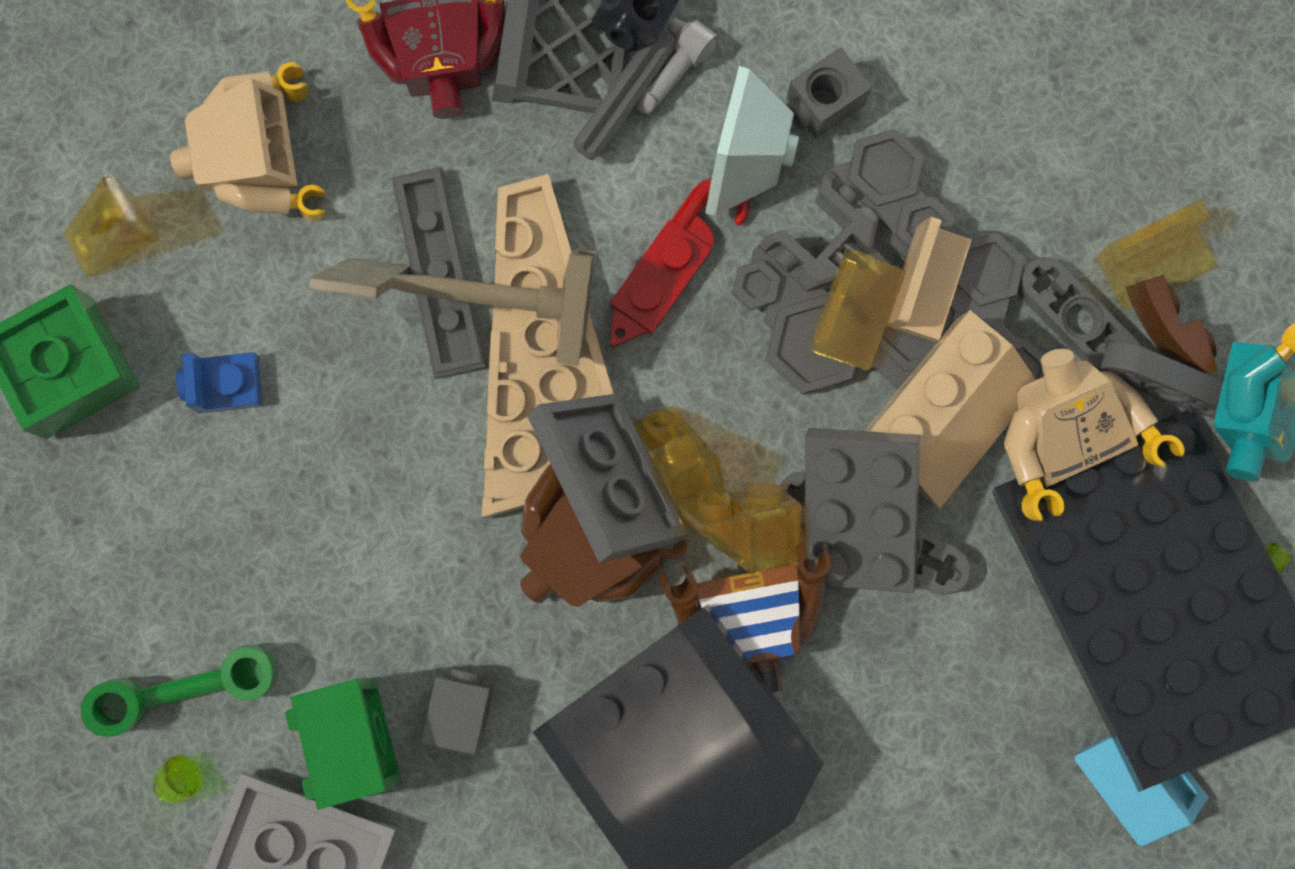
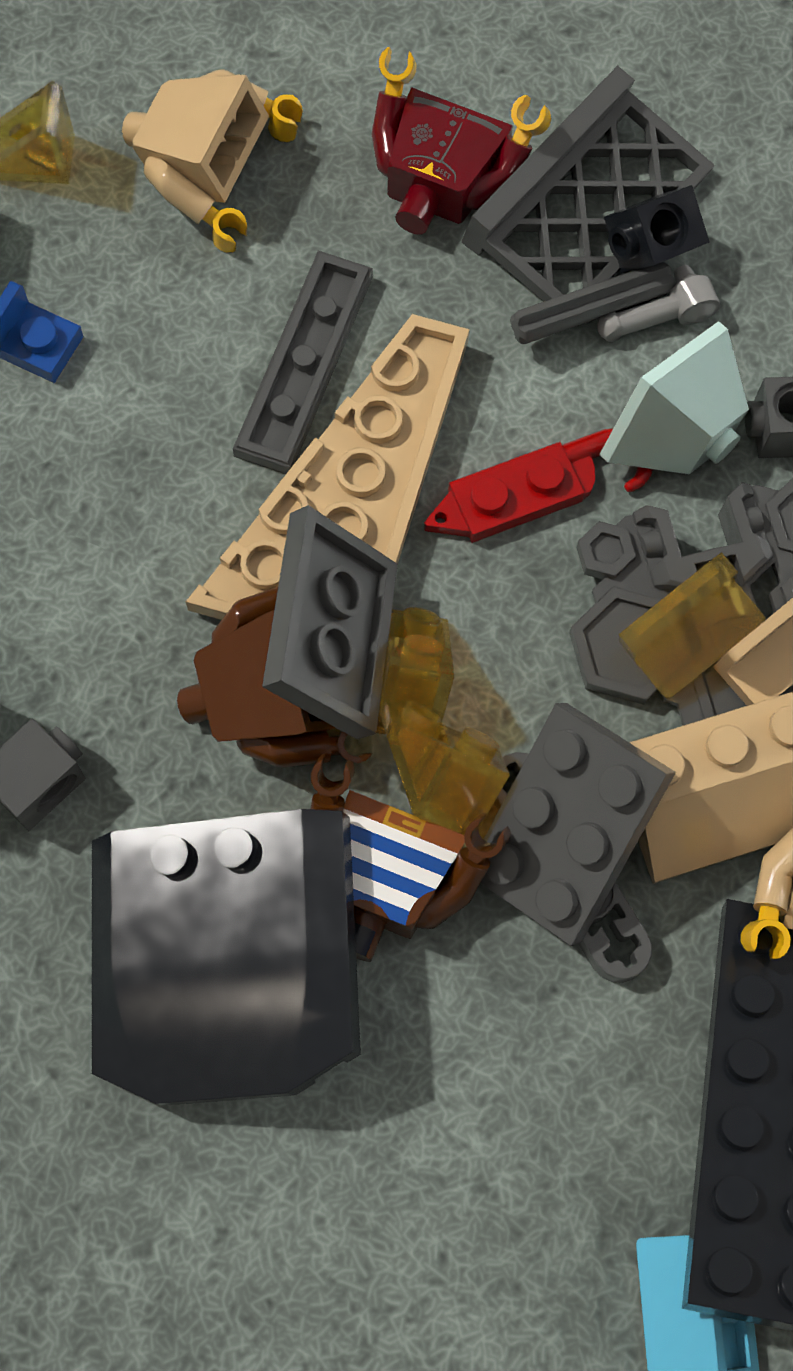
camera: 30 degrees right, 10 degrees down
(565, 304) = (403, 446): dark tan piece -> none

